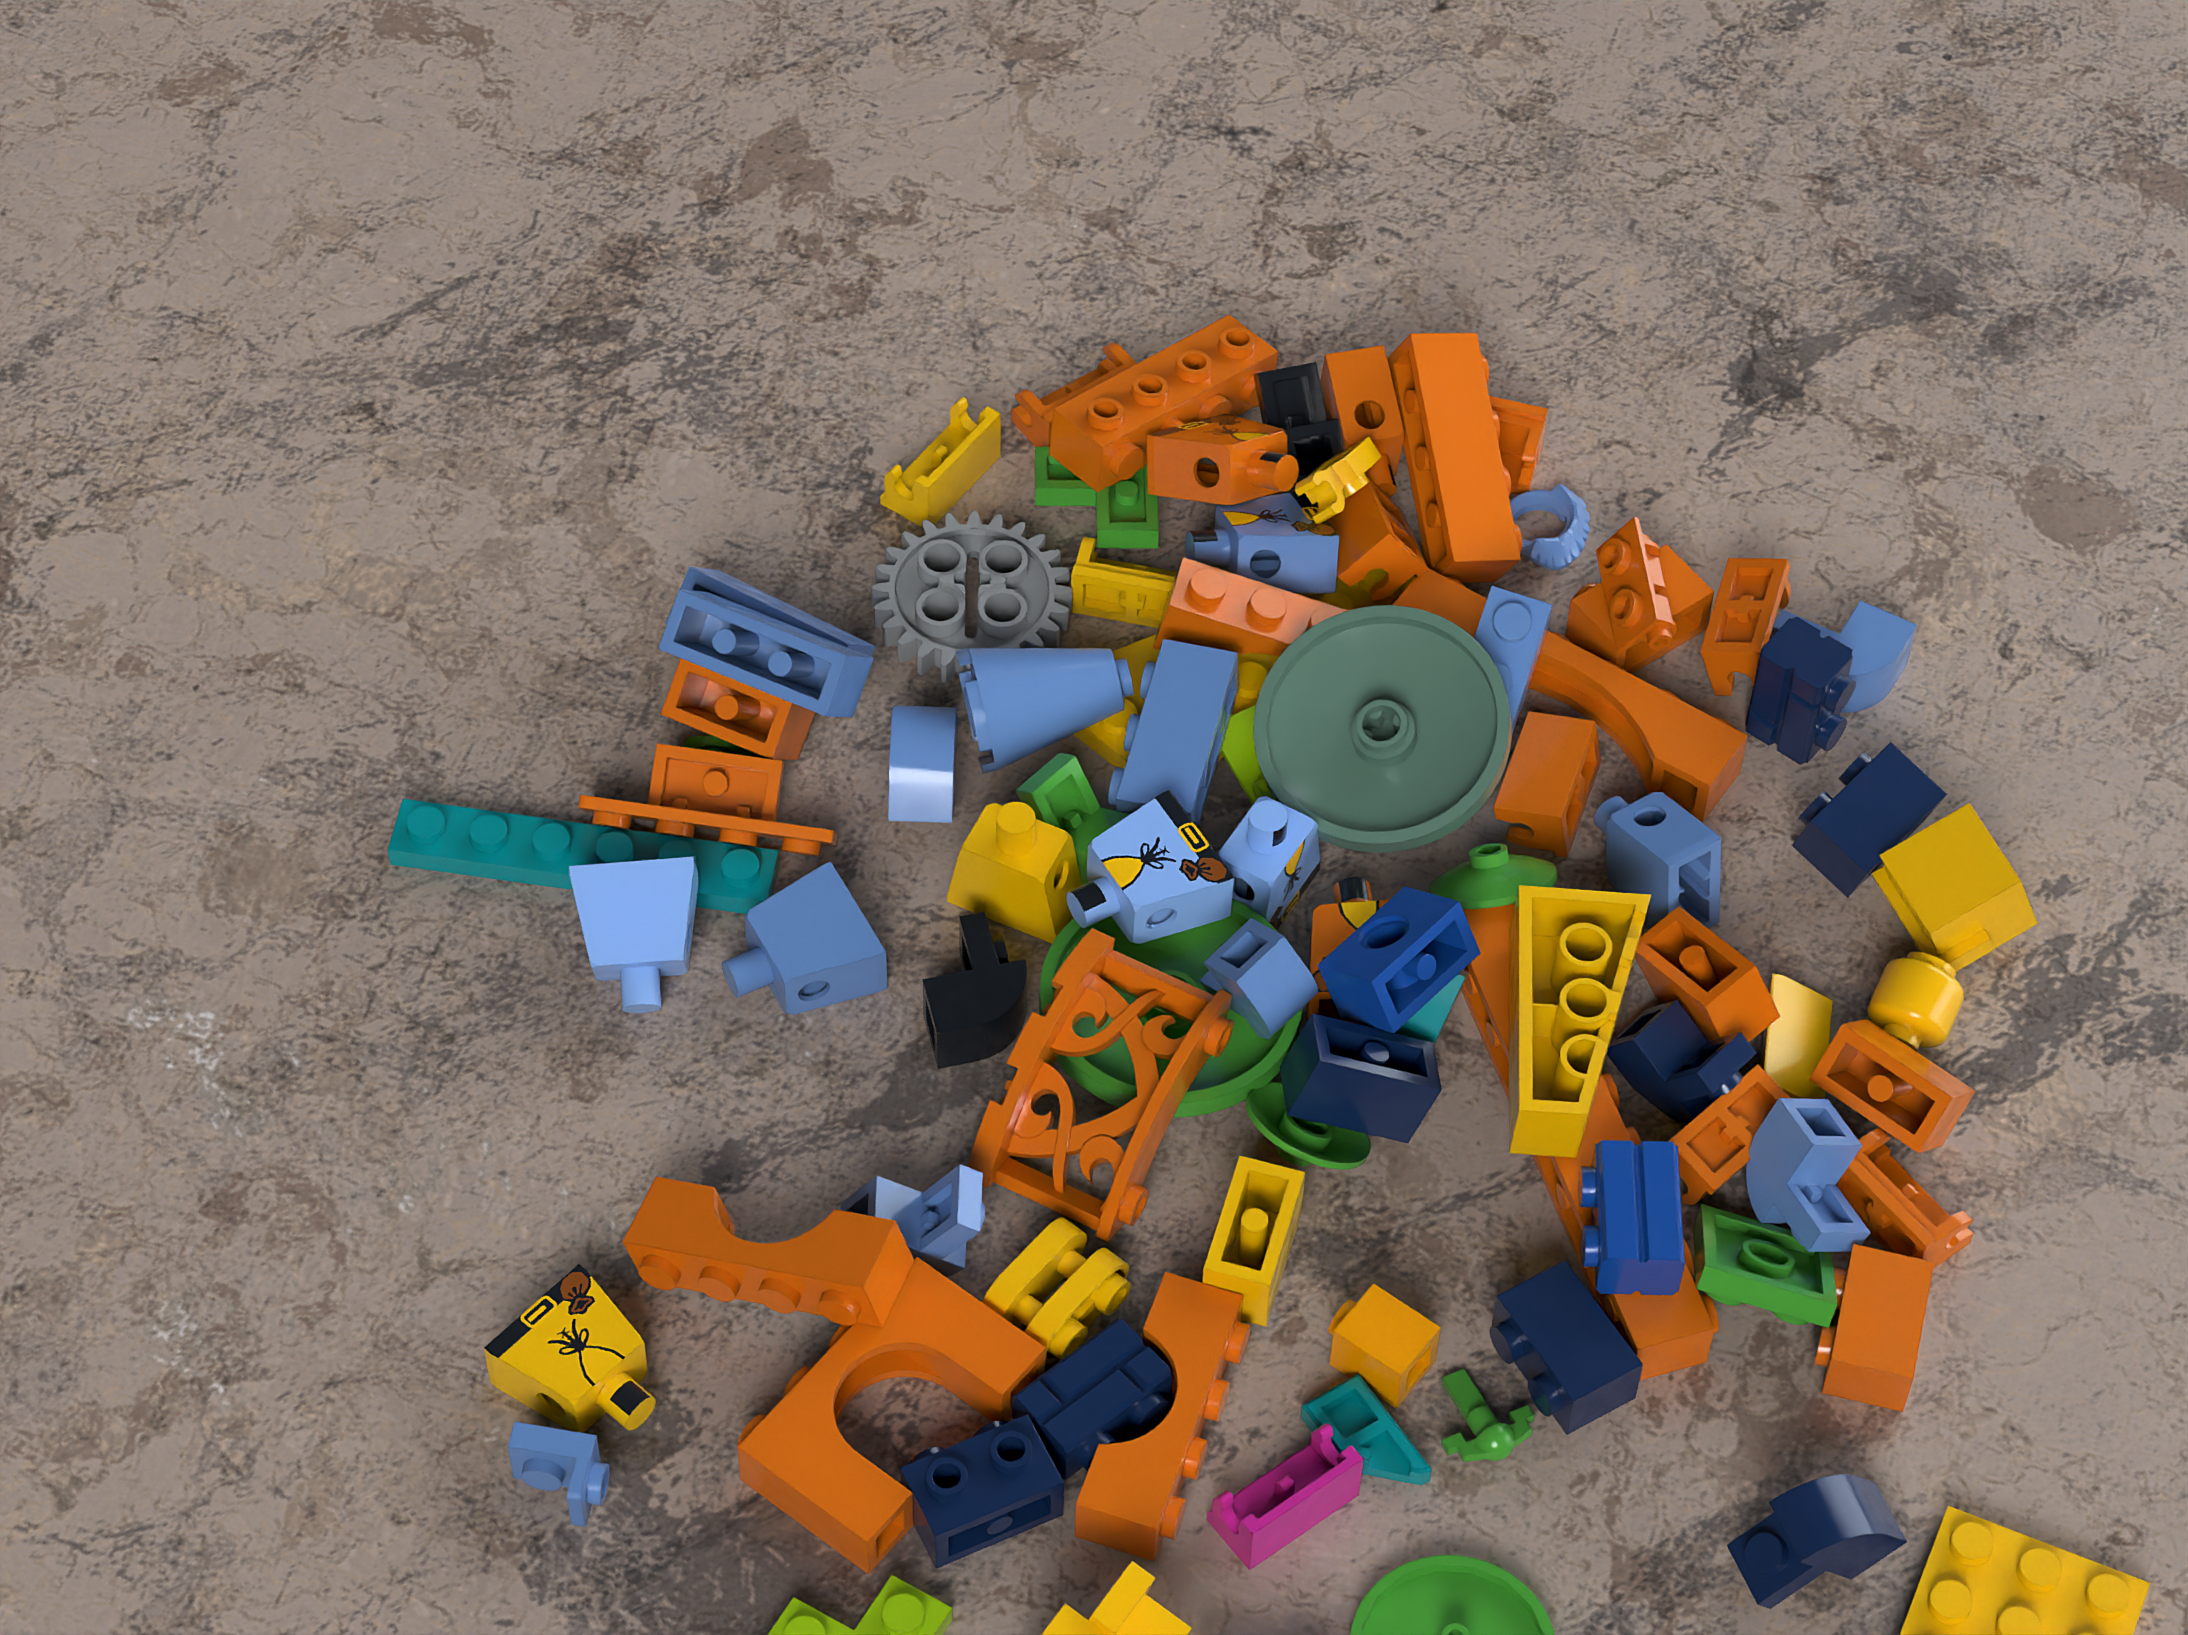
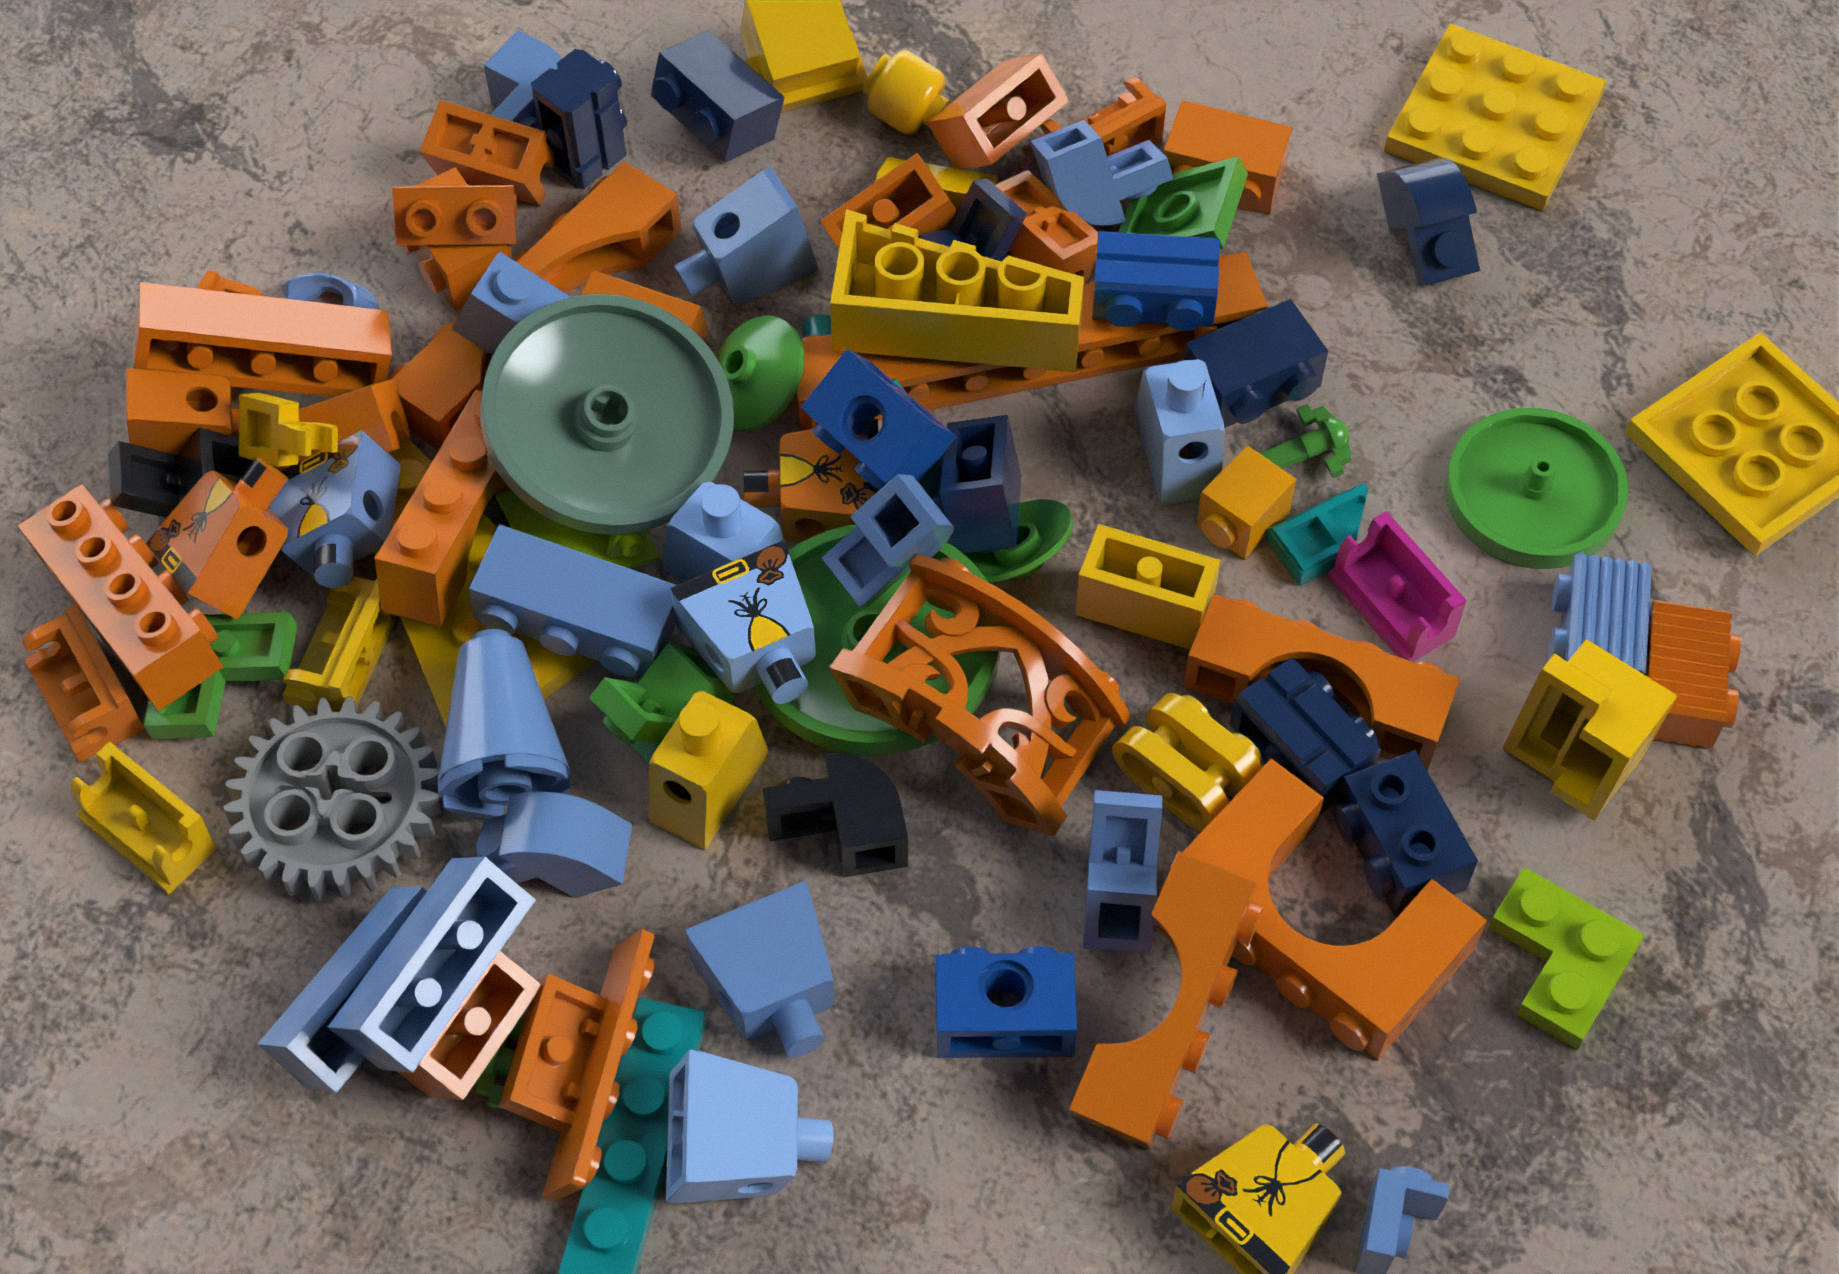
camera: 85 degrees left, 5 degrees up
(772, 1172) = (976, 1028): none -> blue brick
(1460, 1266) = (1176, 409): none -> light blue torso

